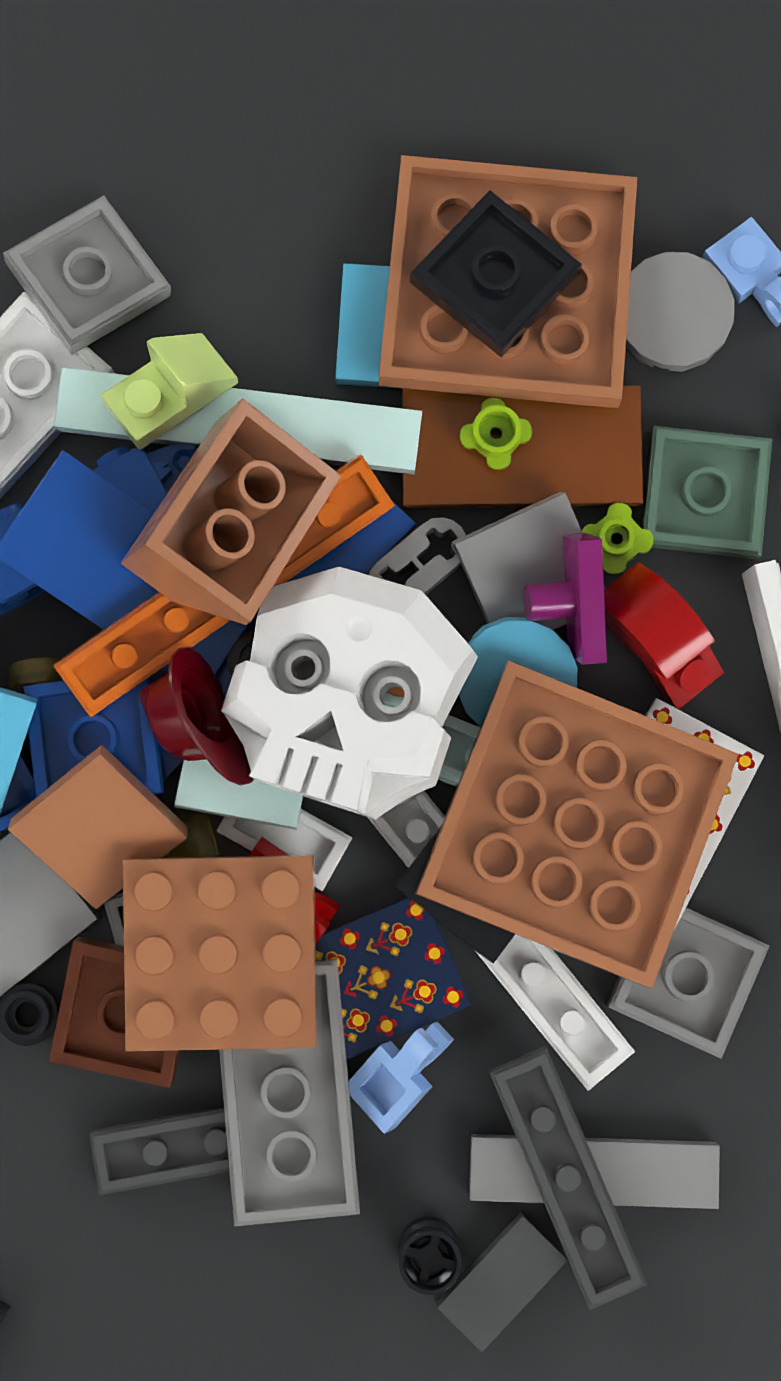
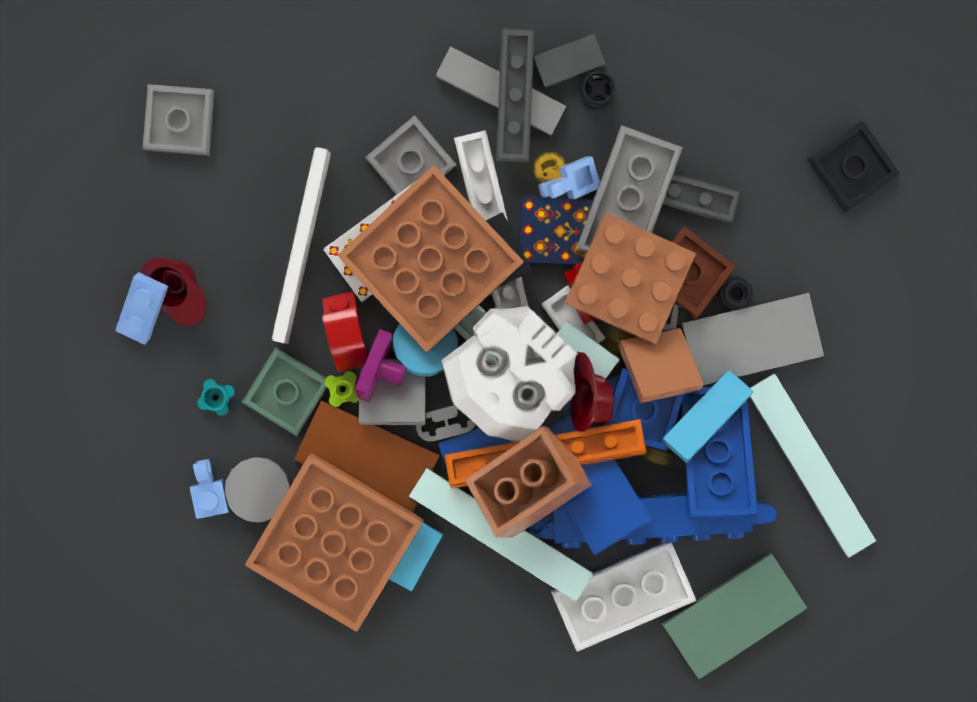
camera: 150 degrees left, 5 degrees up
(87, 274) = (541, 645): light grey tile -> none
(171, 387) = (527, 564): yellowish green slope -> none
(452, 1079) = (547, 166): none -> clear yellow tile
(495, 273) = (340, 547): black tile -> none
(496, 416) = (375, 477): lime plate -> none

